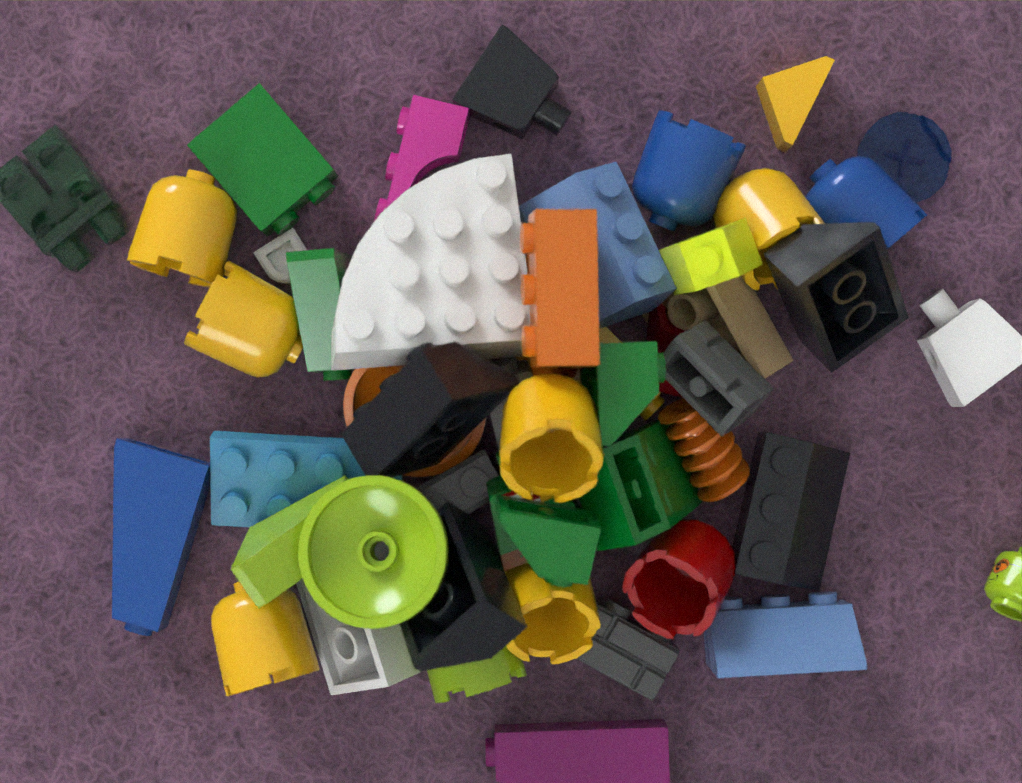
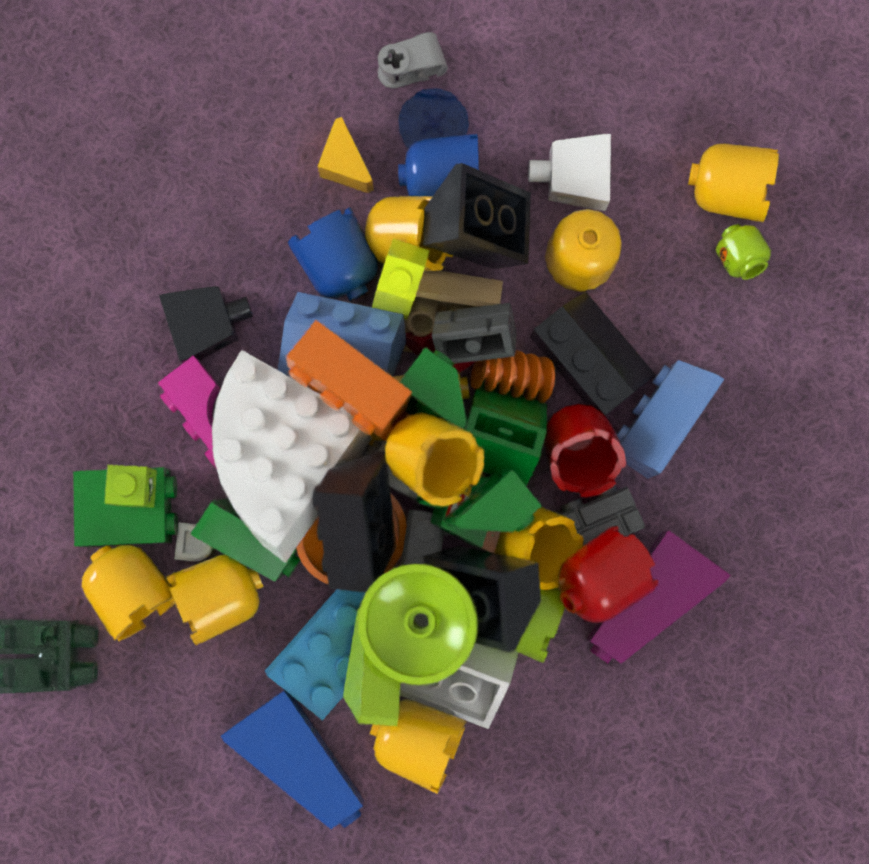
camera: 55 degrees left, 5 degrees down
(287, 154) = (130, 486): none -> lime brick
(569, 702) = (606, 576): none -> red cylinder
(890, 418) = (583, 250): none -> yellow cylinder
(958, 85) = (414, 61): none -> light grey piece

